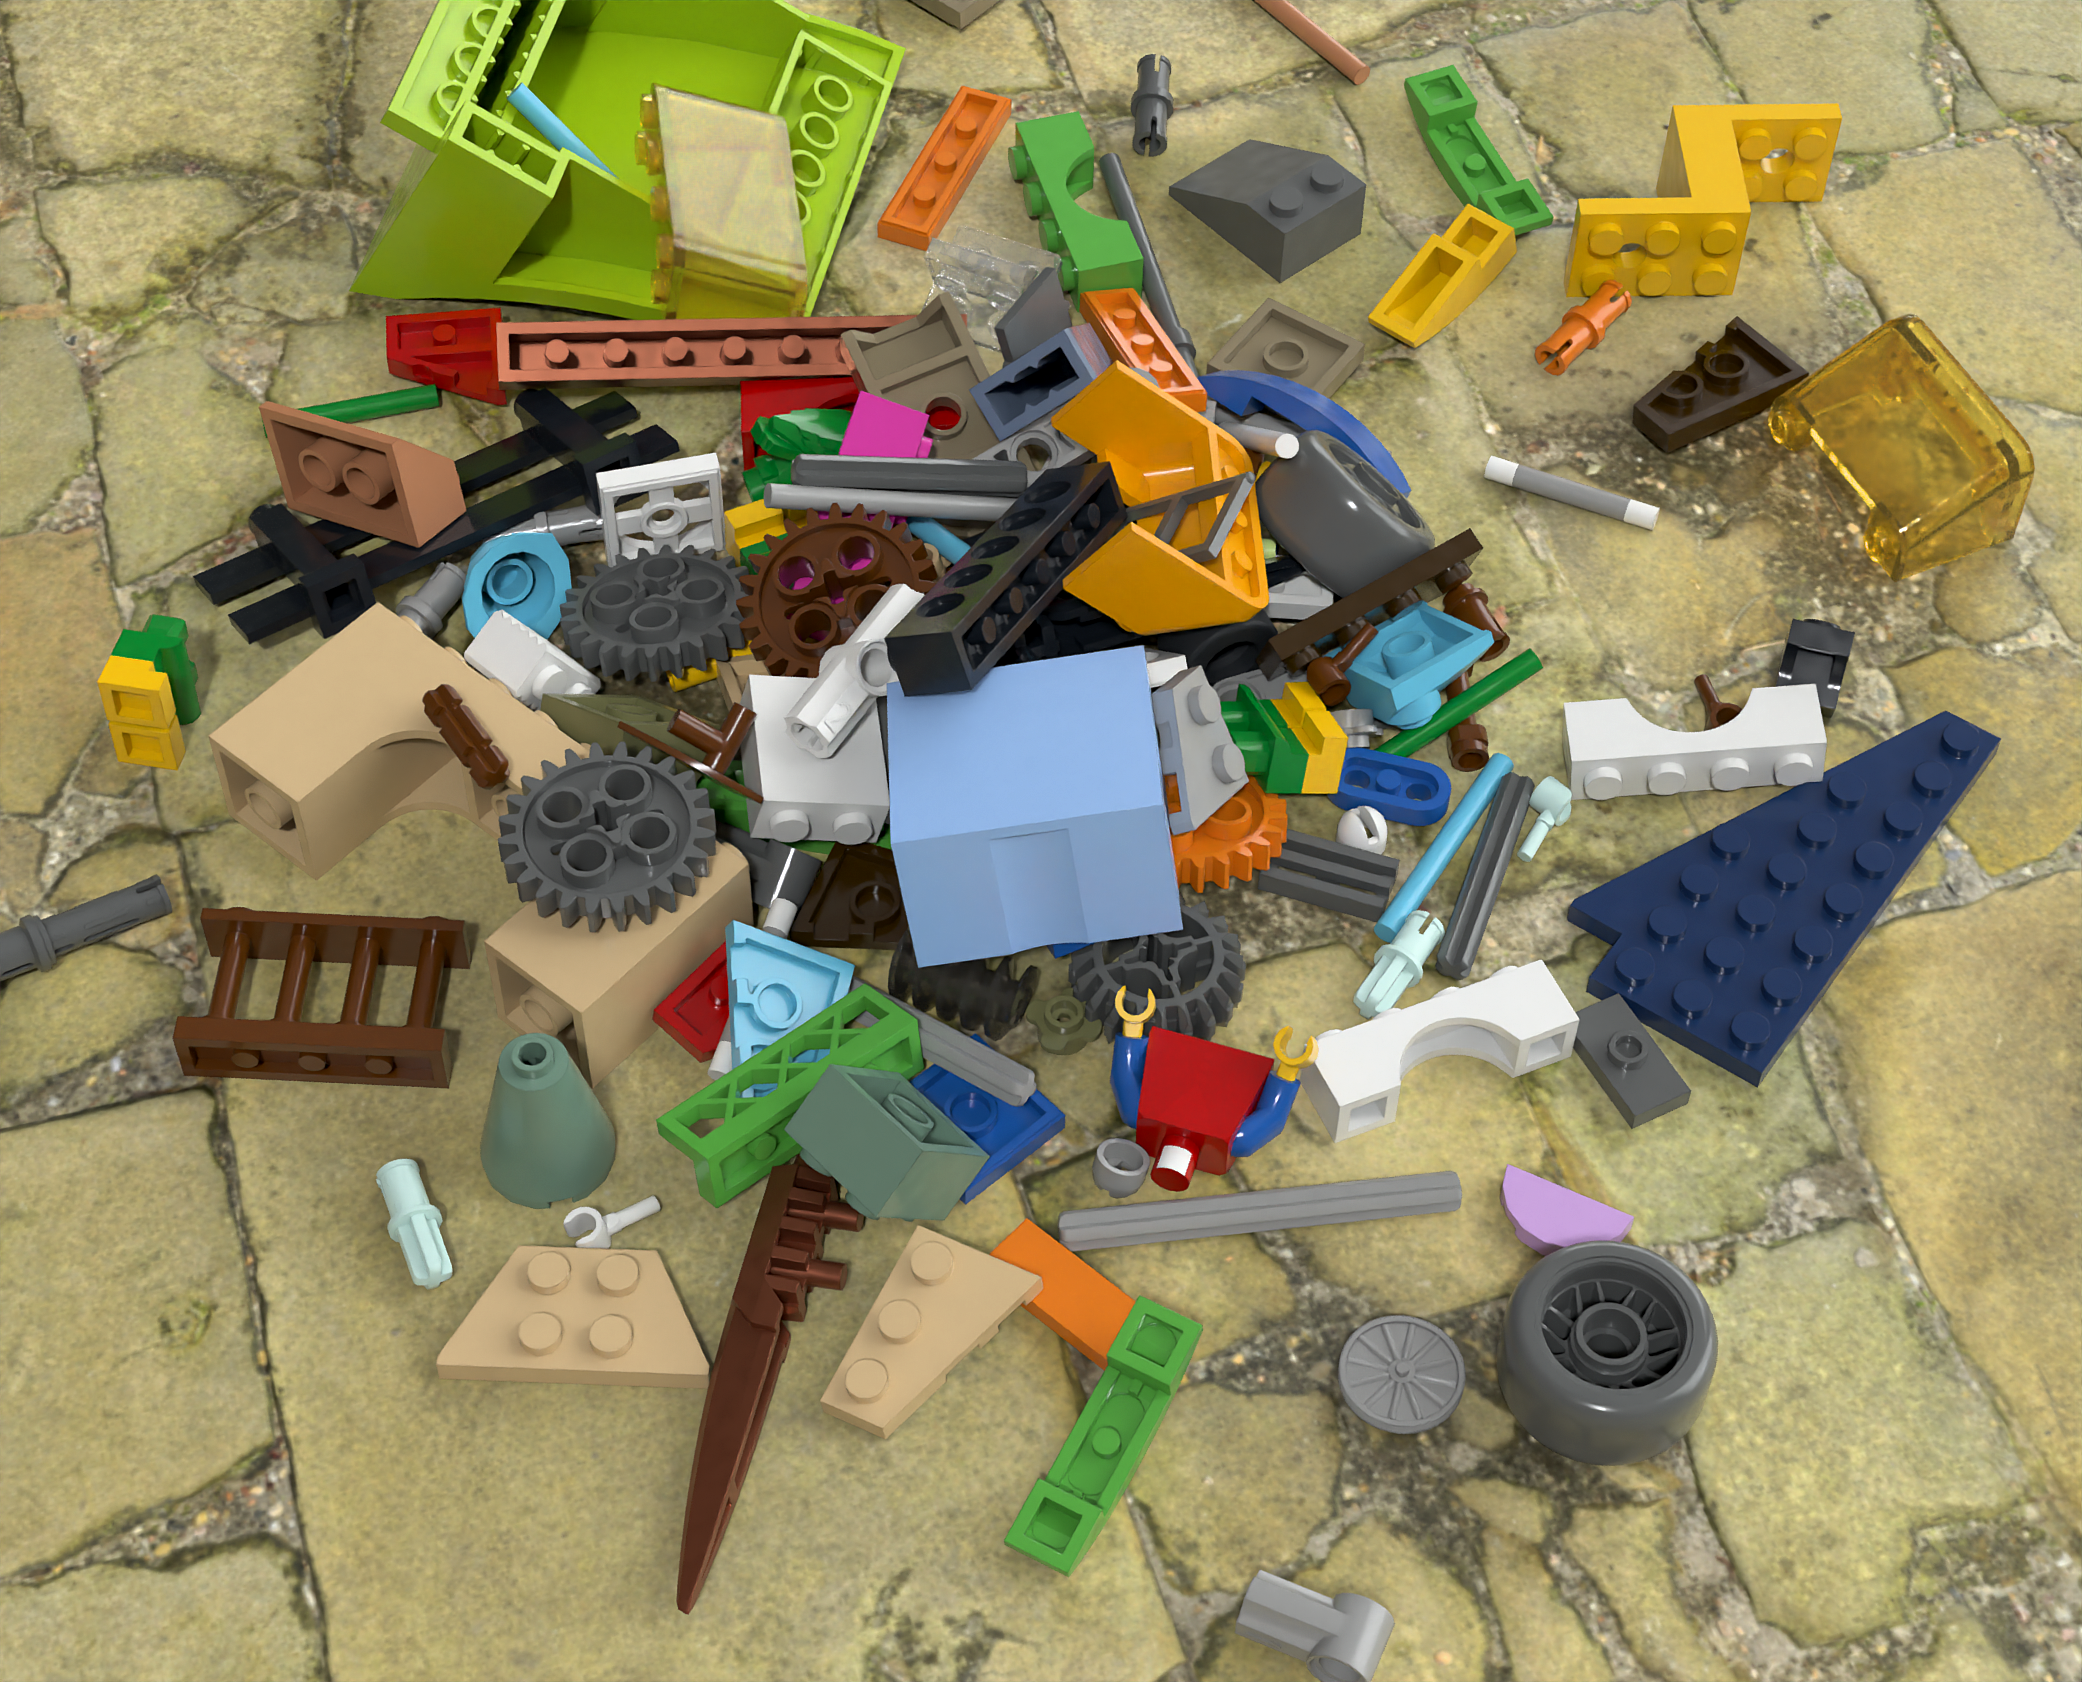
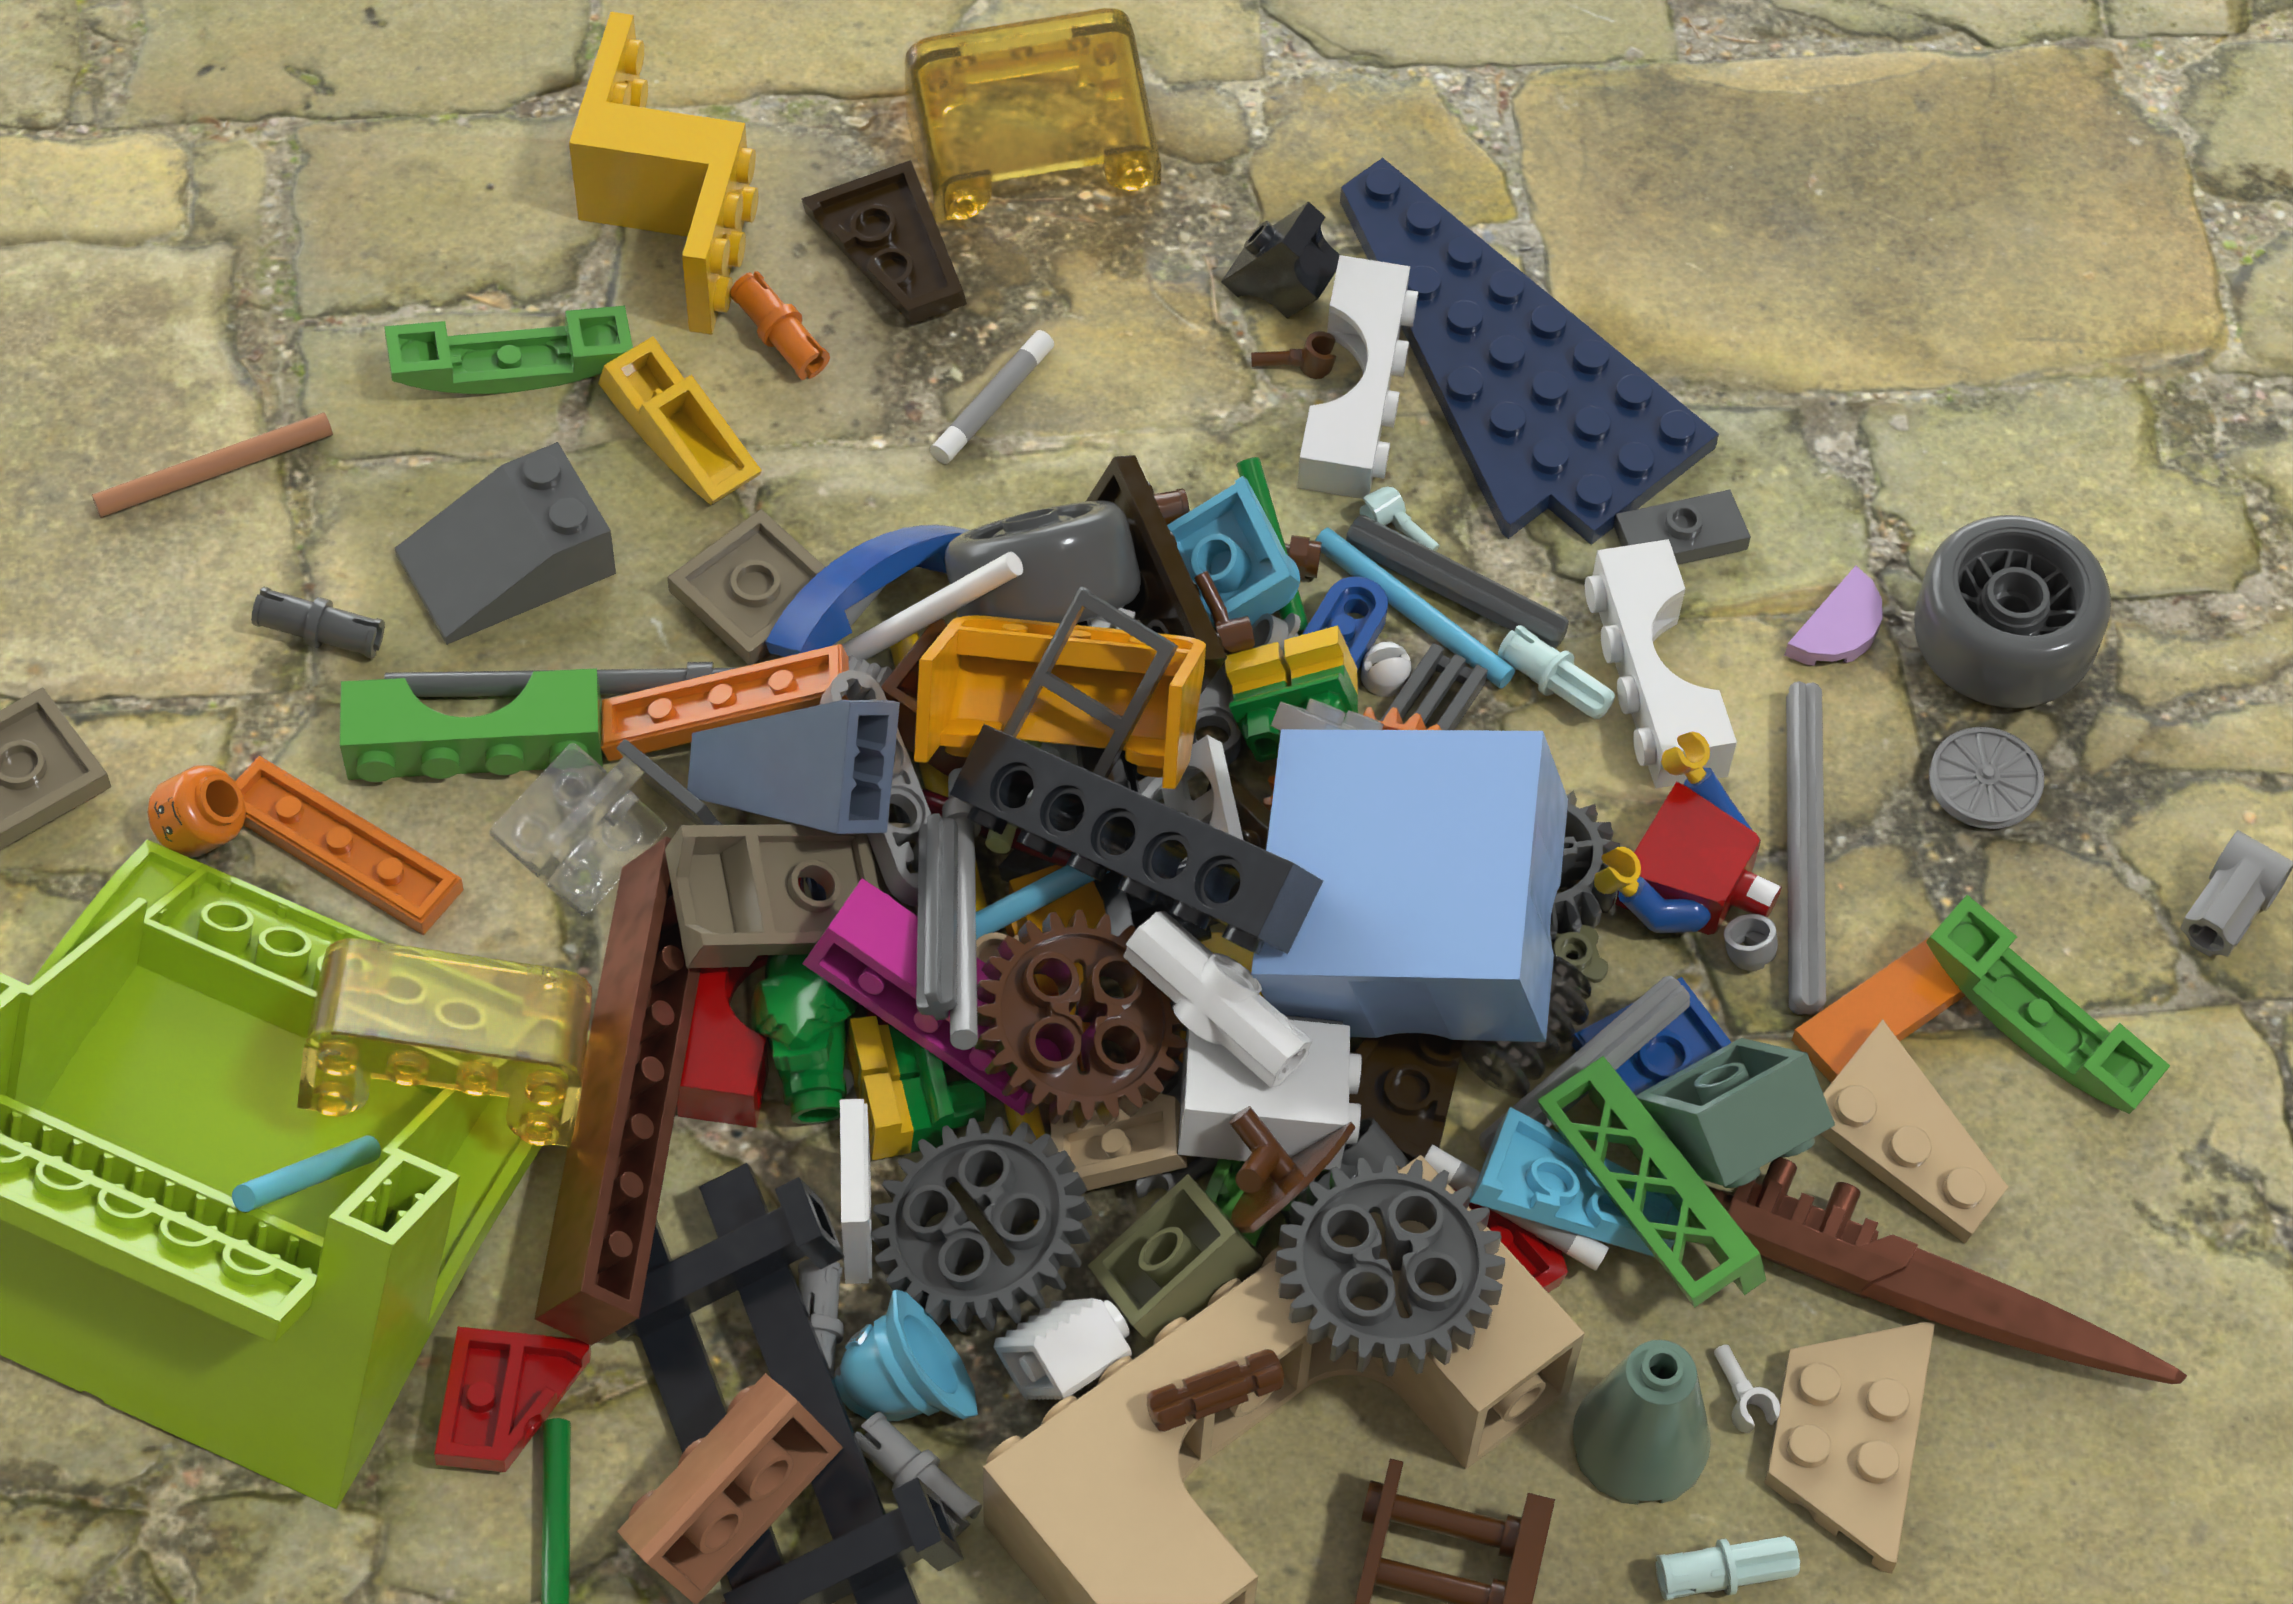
camera: 80 degrees left, 5 degrees up
(941, 45) = (196, 810): none -> orange head

